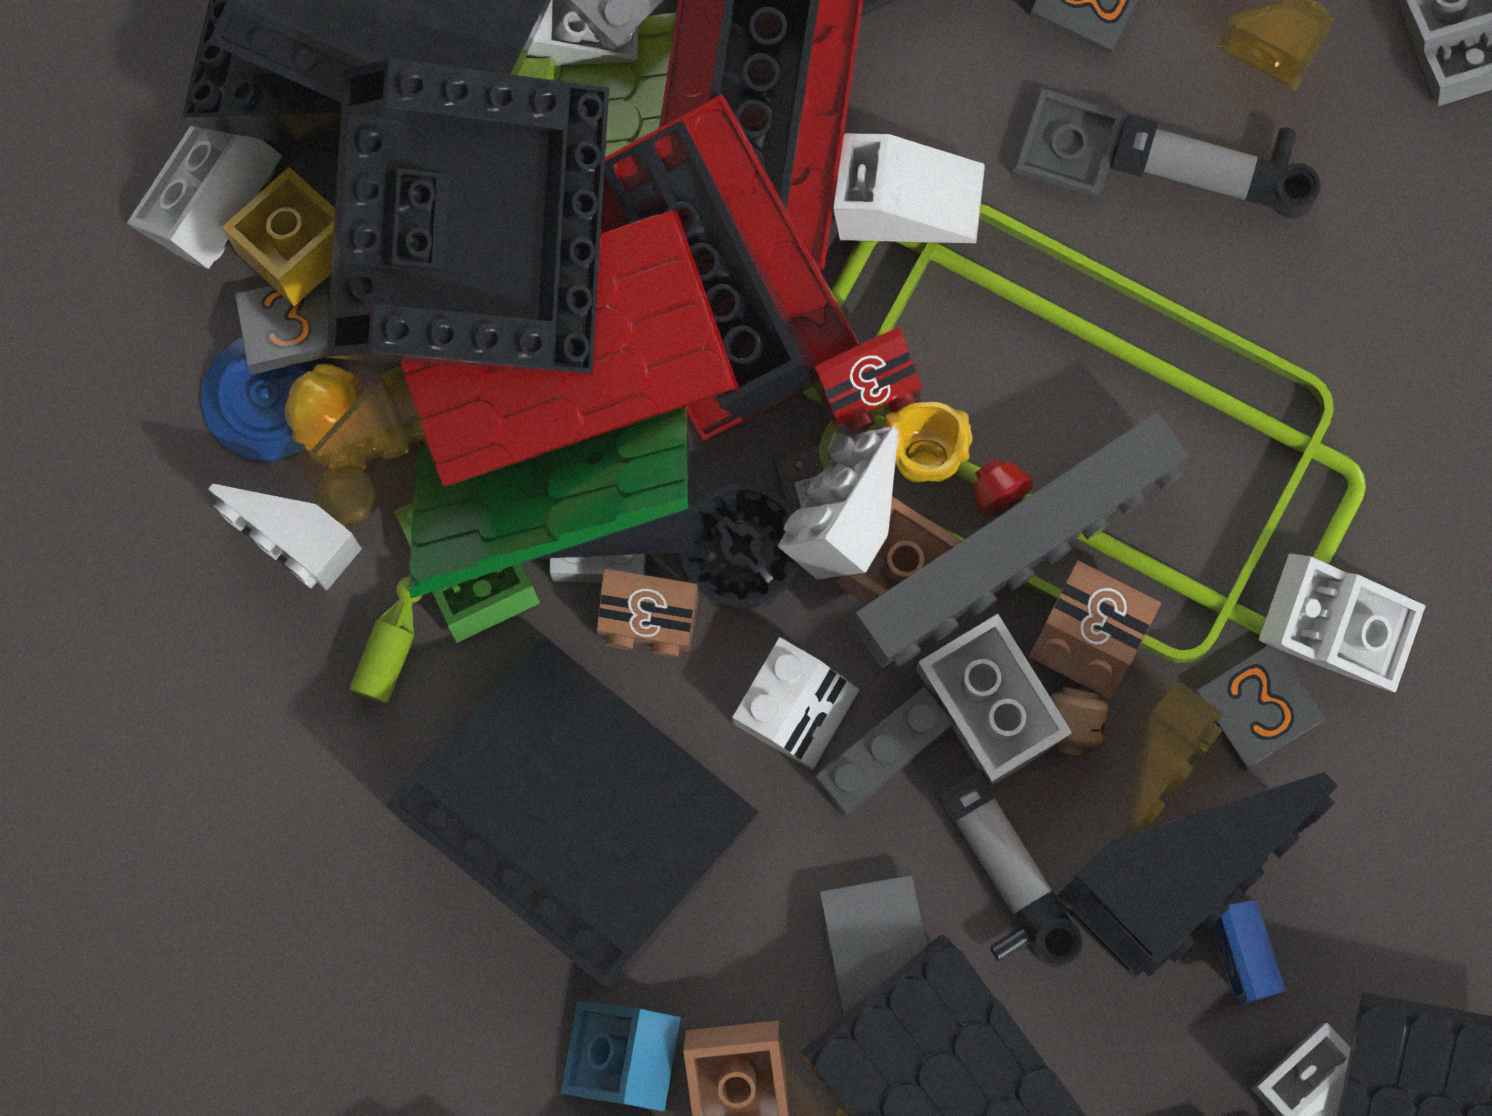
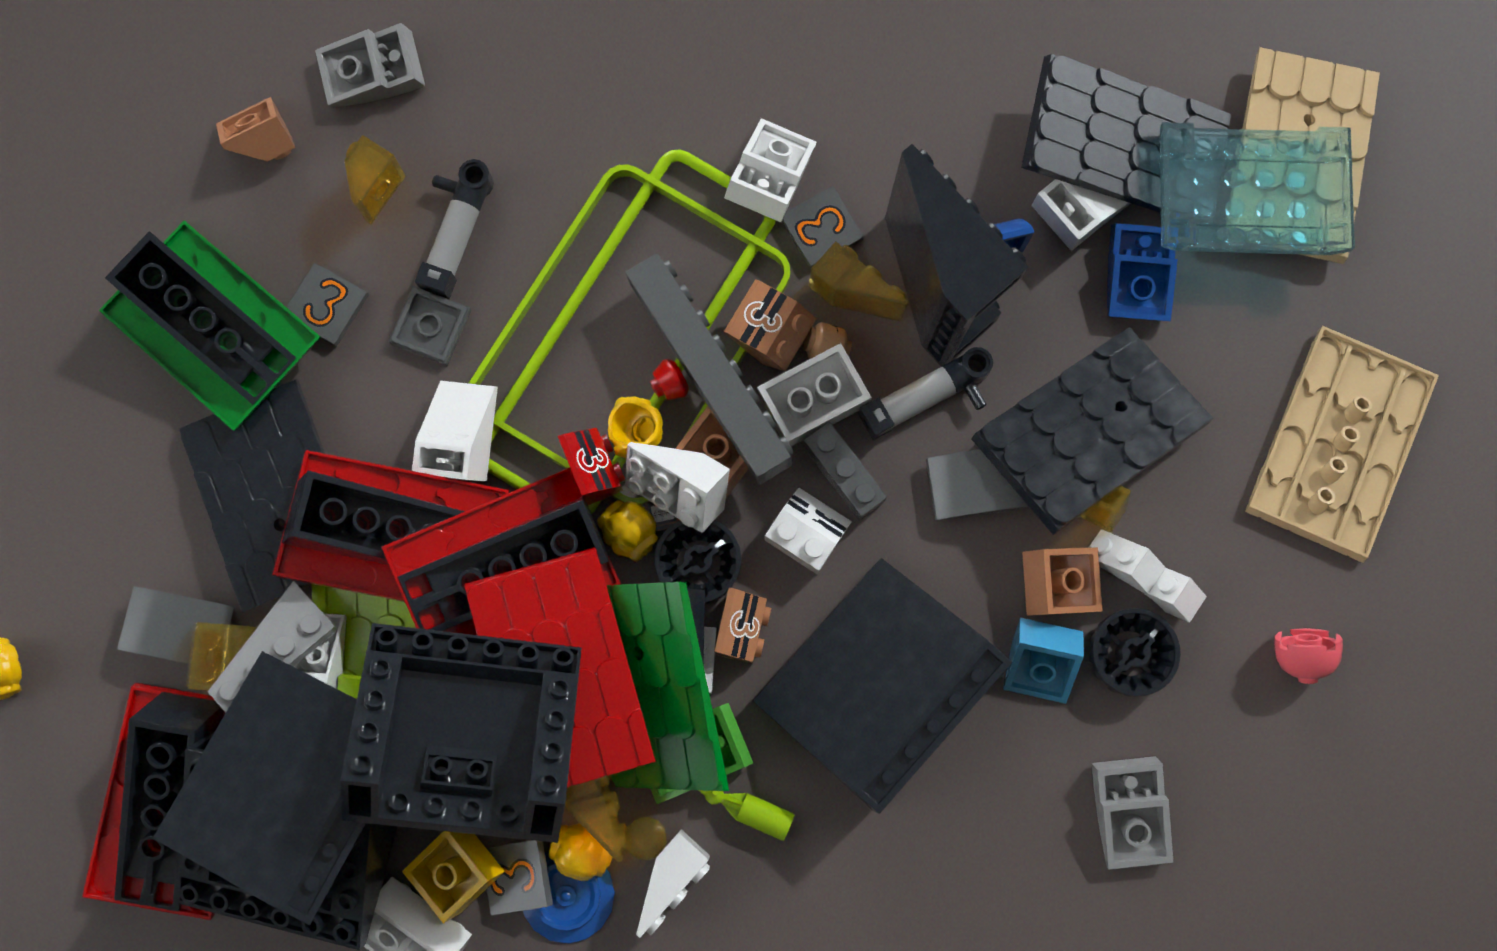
camera: 90 degrees left, 0 degrees up
(781, 445) = (628, 529): none -> yellow hair

